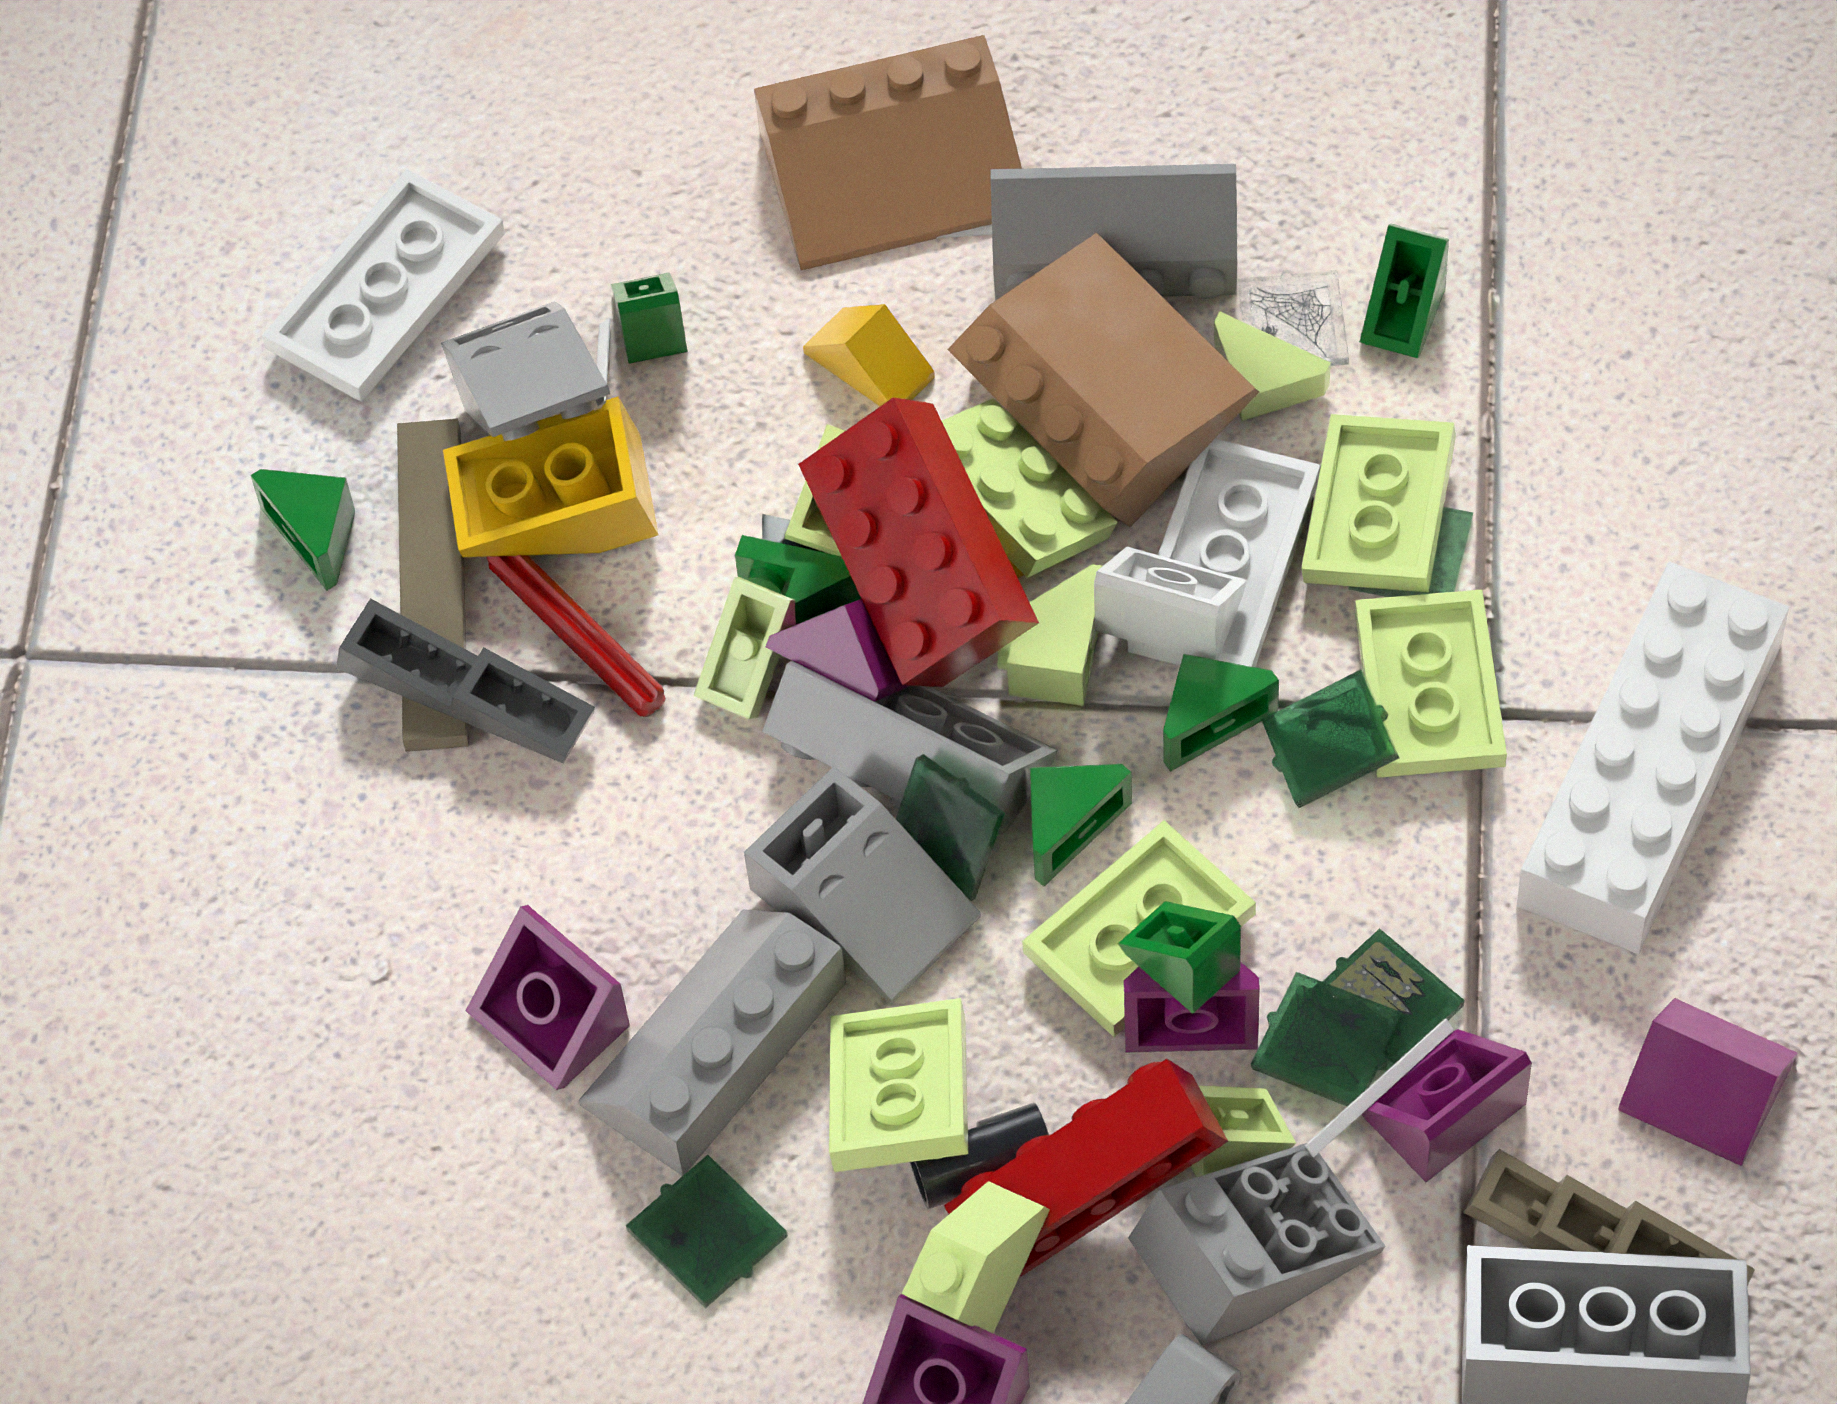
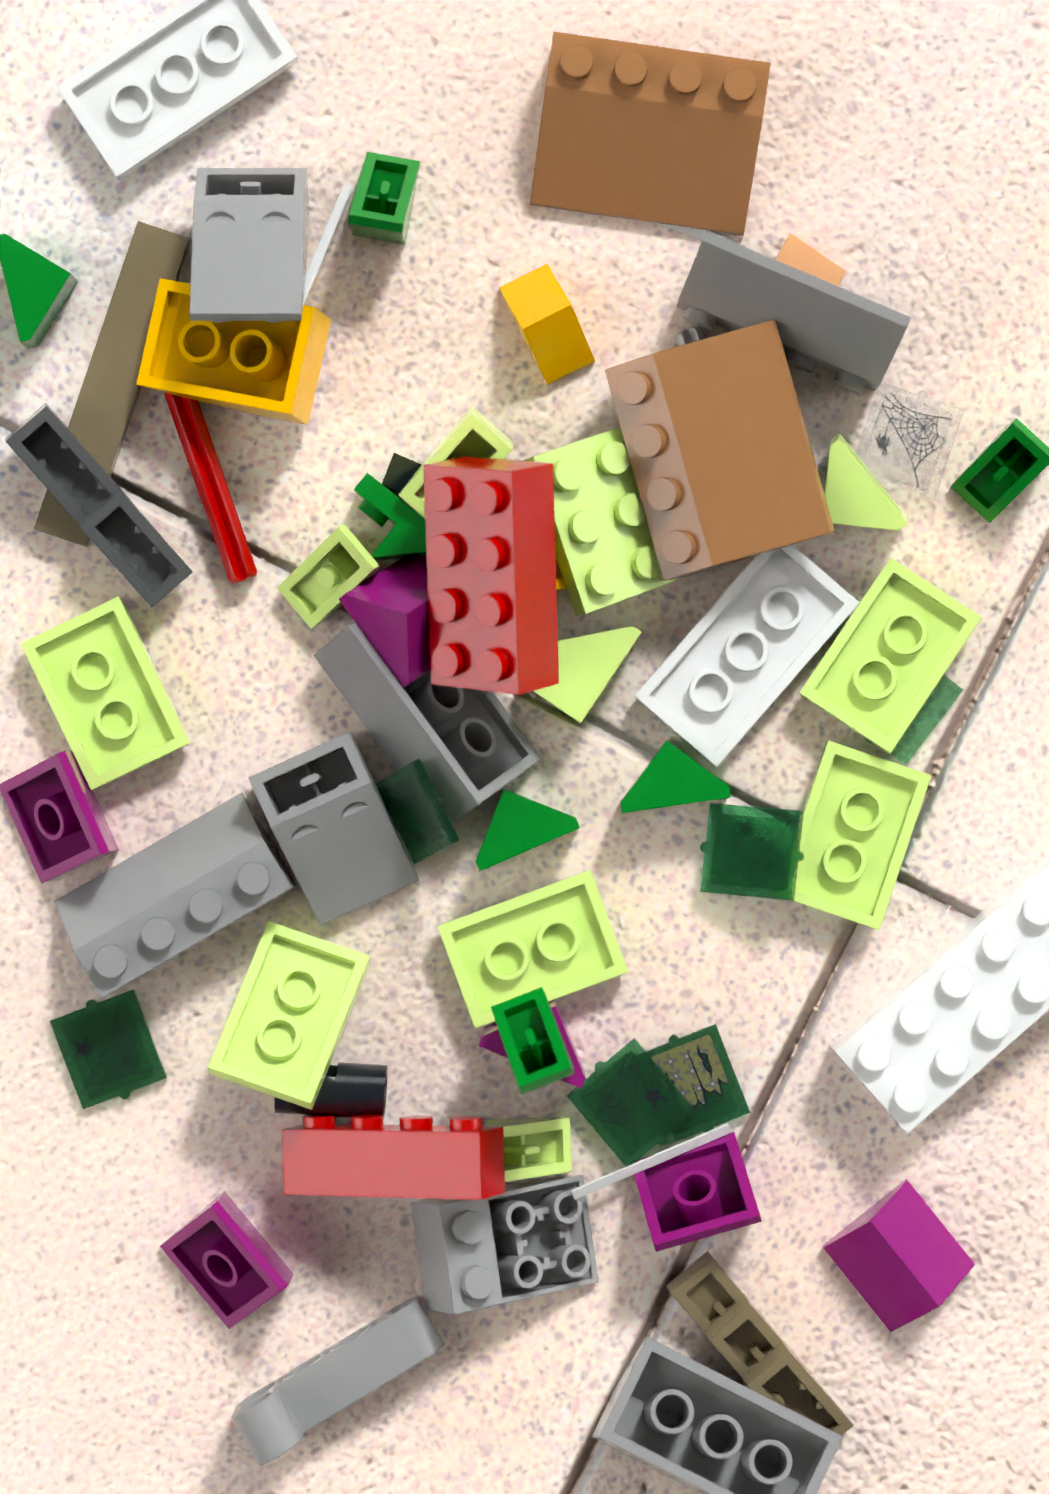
camera: 15 degrees right, 30 degrees up
(551, 854) = (105, 693): none -> yellowish green plate
(977, 1256) = (281, 1198): yellowish green slope -> none
(1166, 603) = (681, 683): white slope -> none

